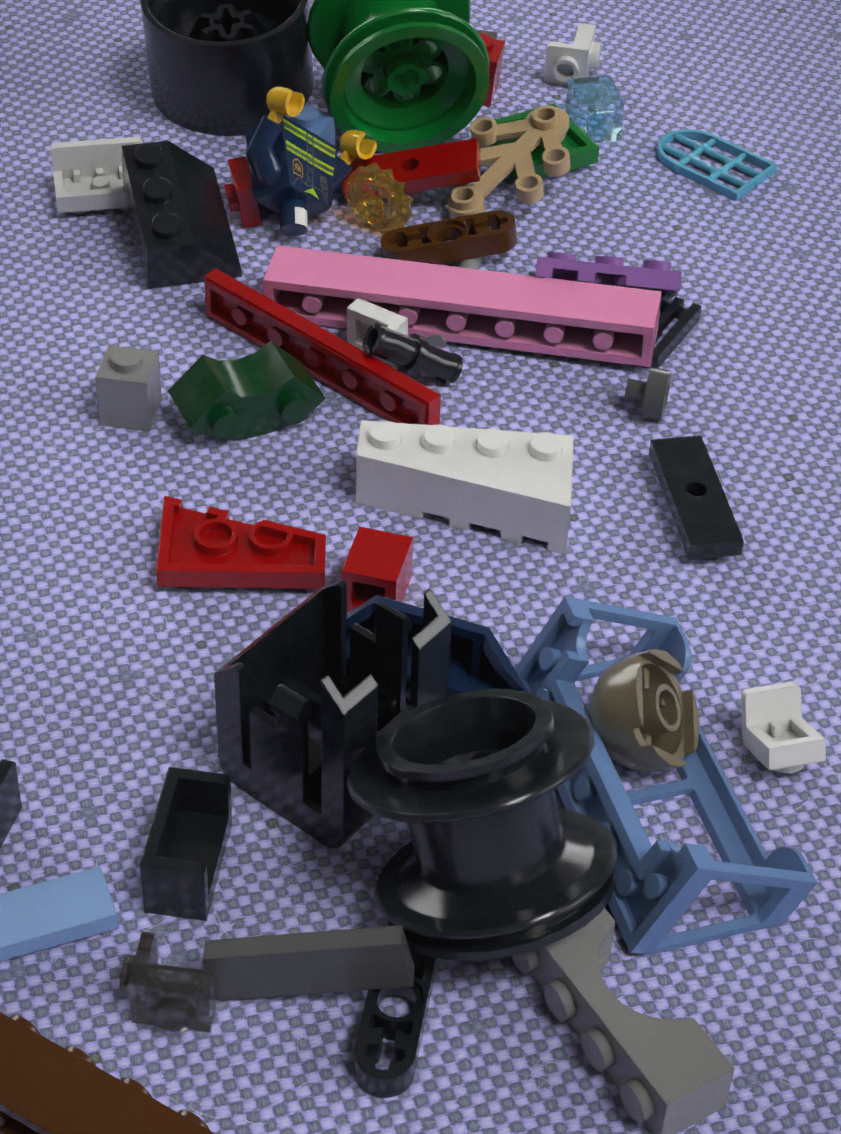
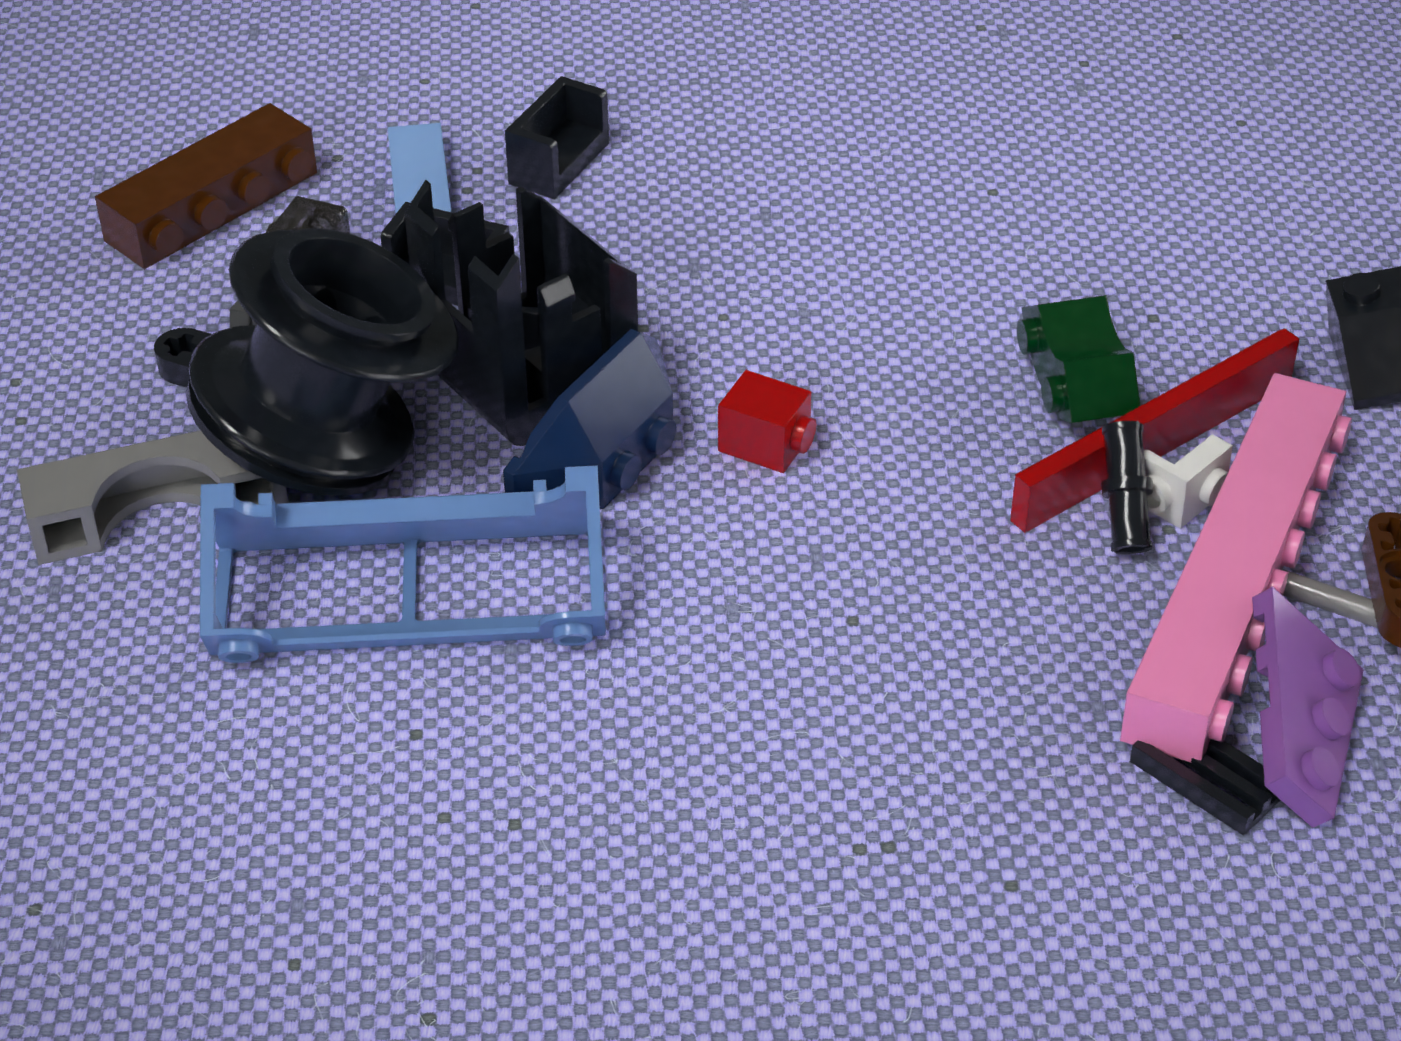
camera: 105 degrees right, 0 degrees up
(128, 388) = (1102, 265): light grey brick -> none
(227, 553) = (836, 329): red wing -> none
(470, 477) = (889, 521): white wedge -> none
(645, 713) = (469, 560): dark tan cylinder -> none
(652, 393) = (1044, 716): dark grey tile -> none
(695, 498) = (839, 713): black tile -> none
(776, 730) = (427, 689): white bracket -> none

